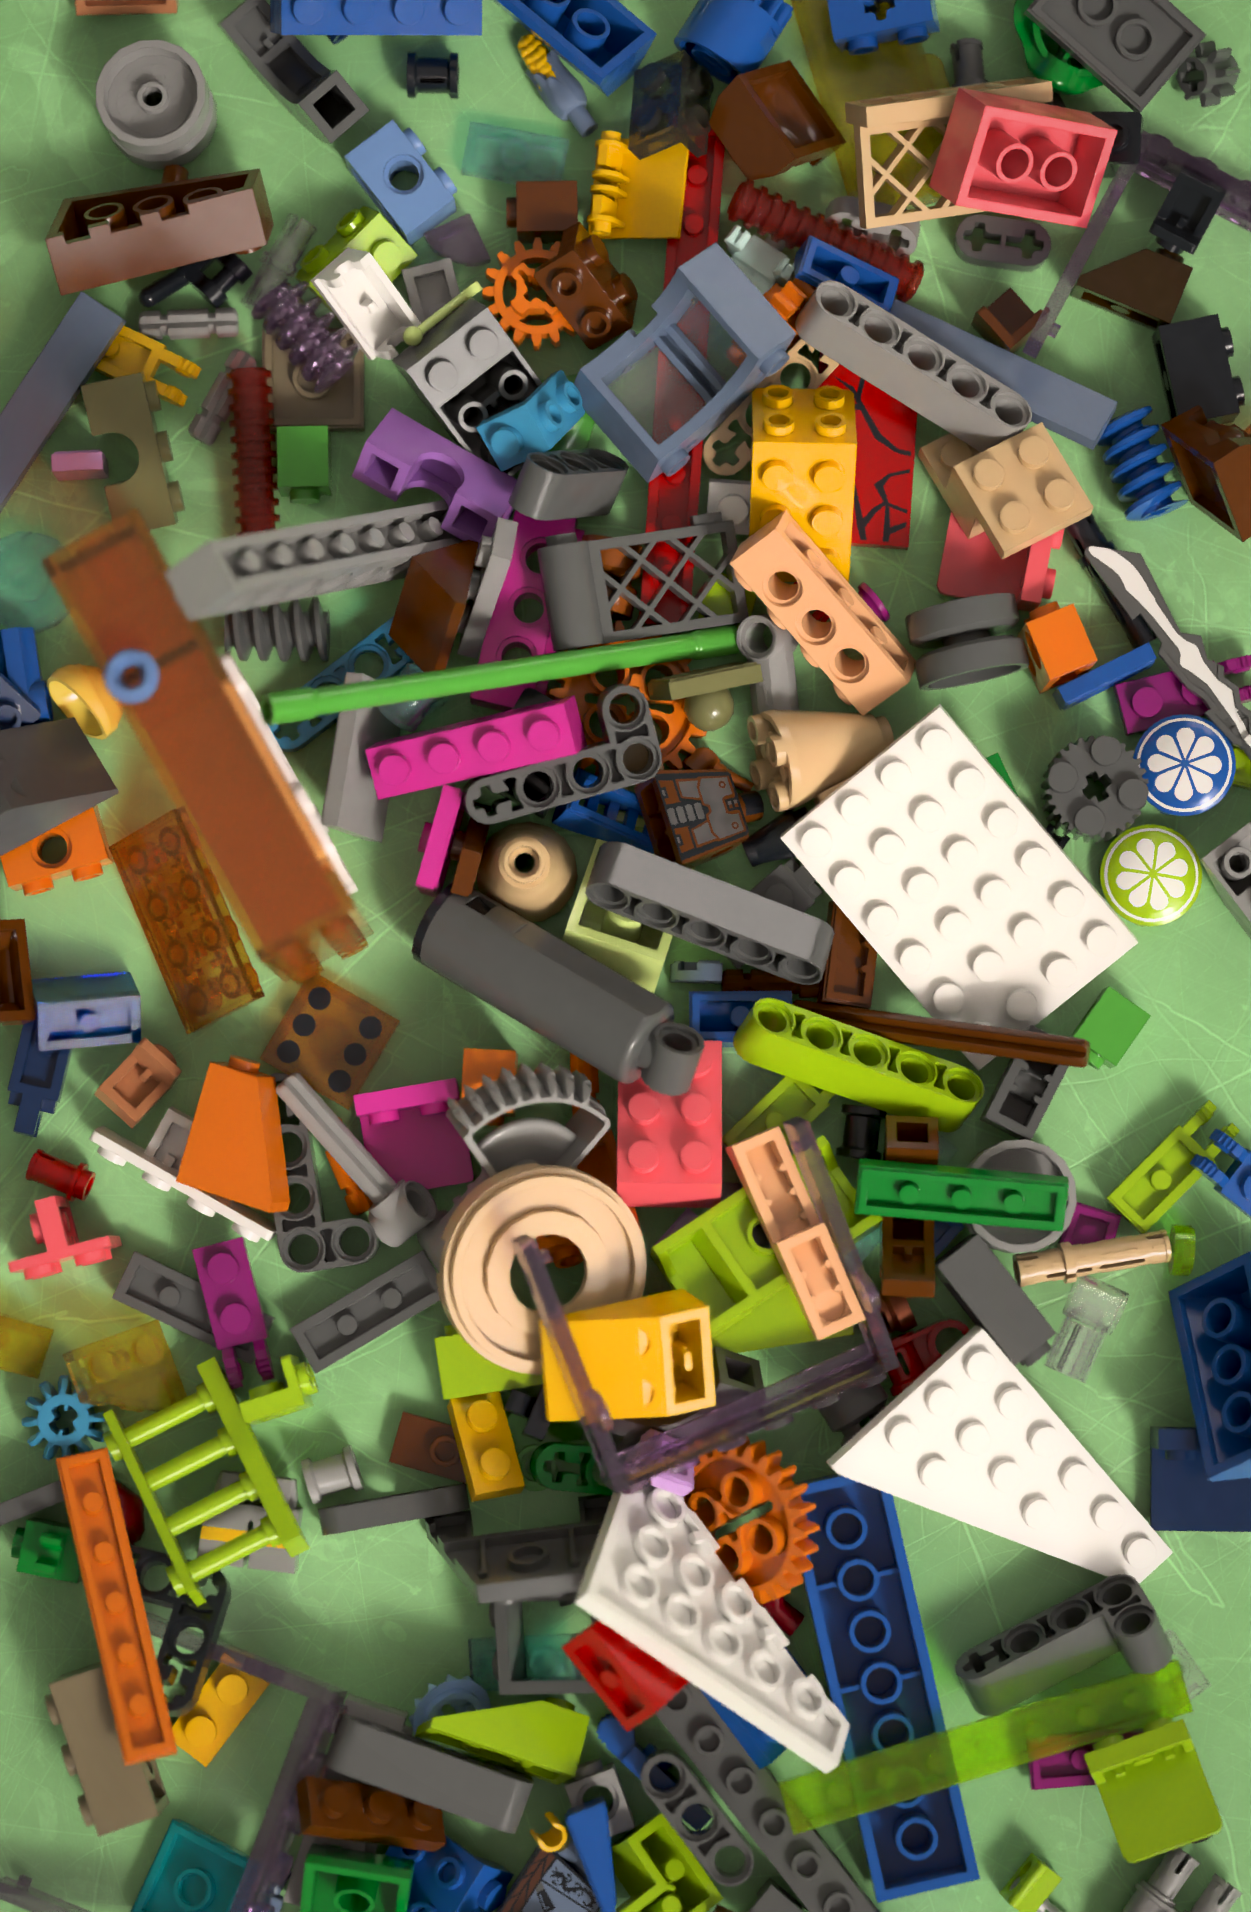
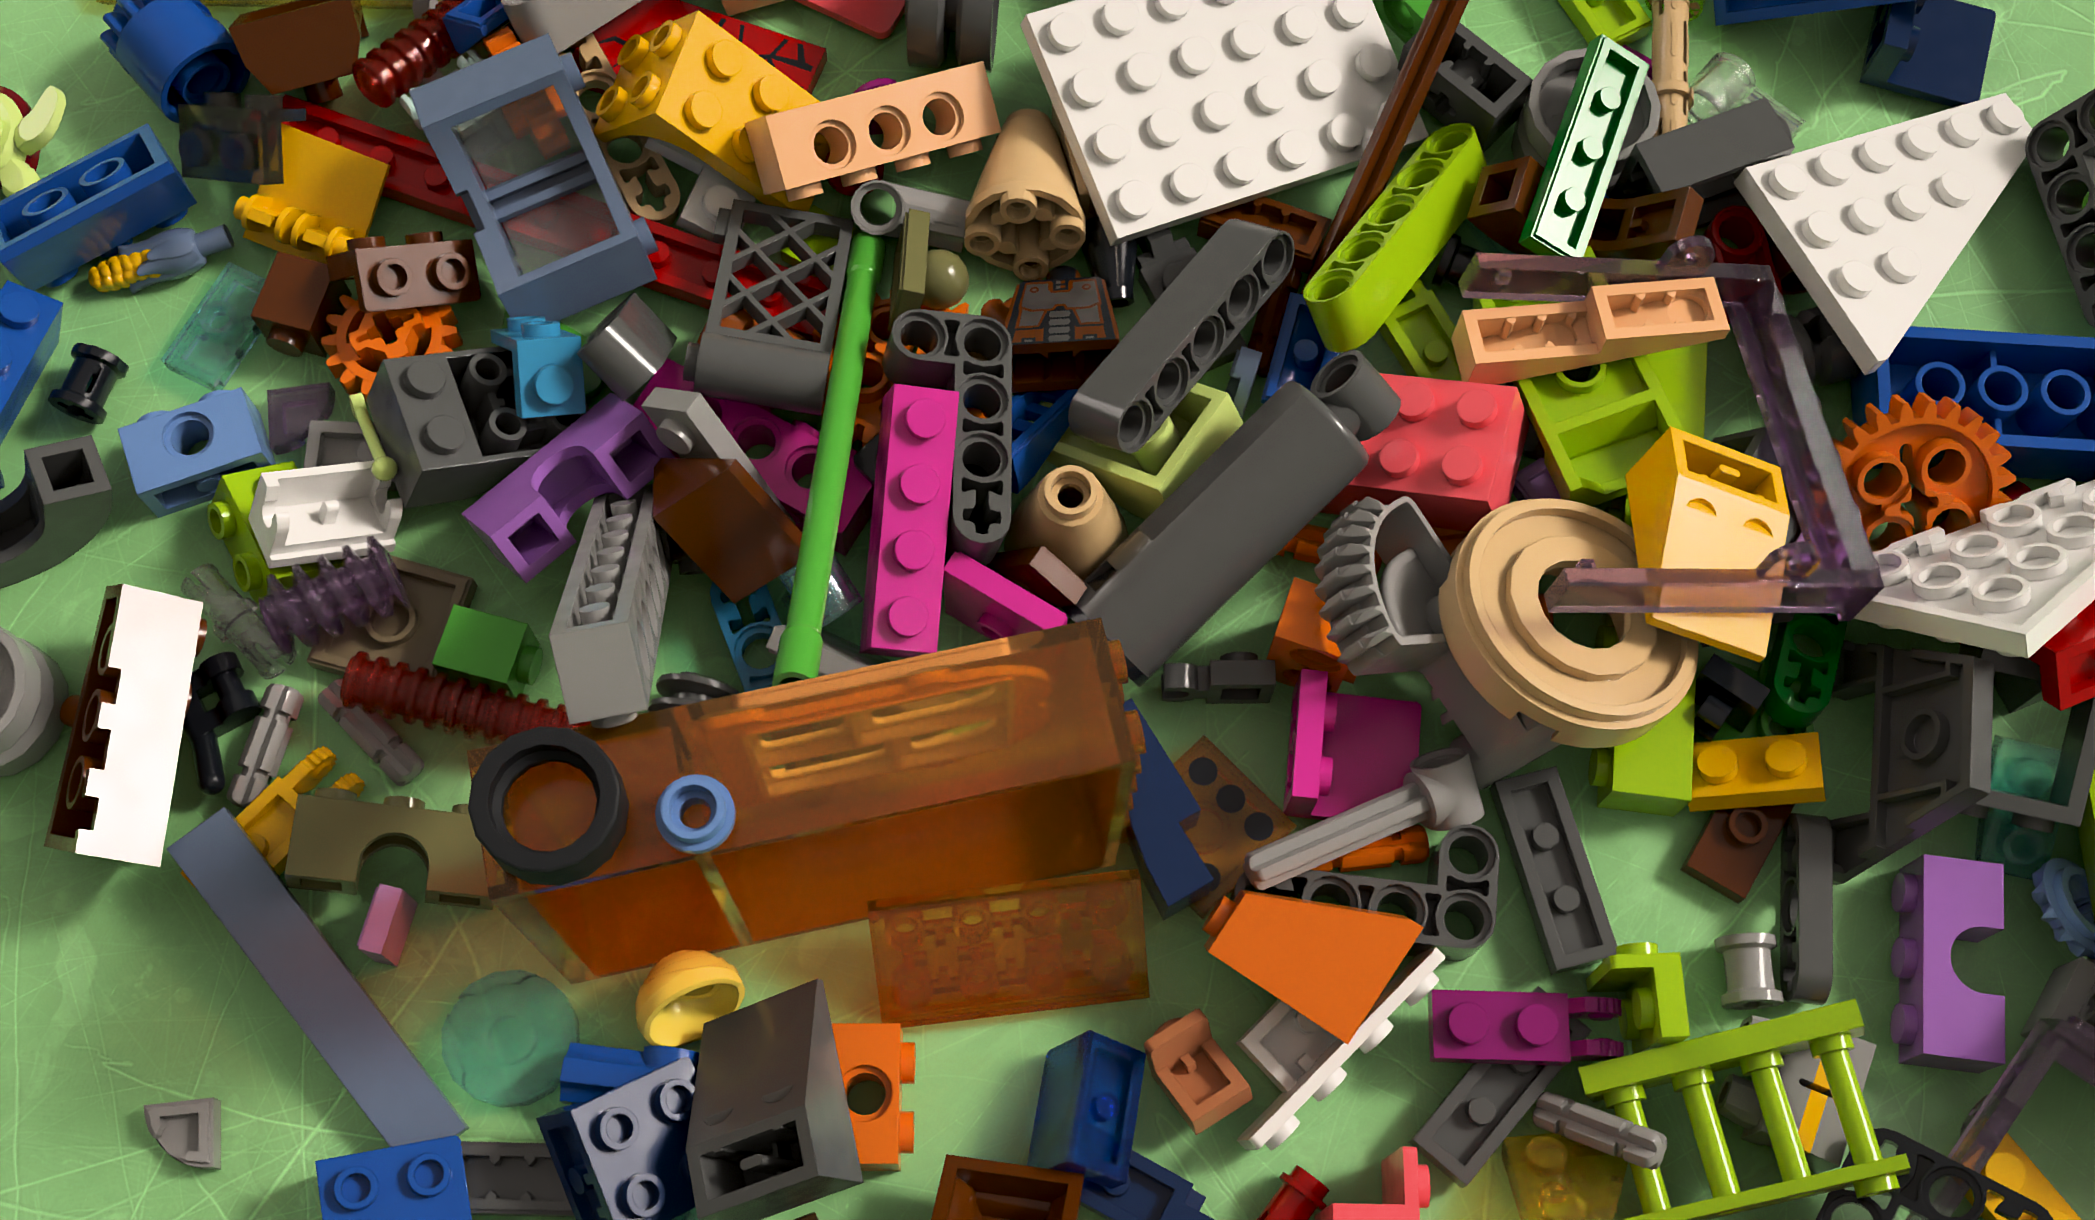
camera: 75 degrees left, 15 degrees down
(96, 538) = (511, 761): none -> black tyre
(174, 1382) = (1600, 1130): none -> light grey axle
(319, 998) = (1158, 828): none -> dark blue slope
(333, 1624) = (1937, 1015): none -> medium lavender arch
(451, 1032) = (1231, 680): none -> dark grey plate

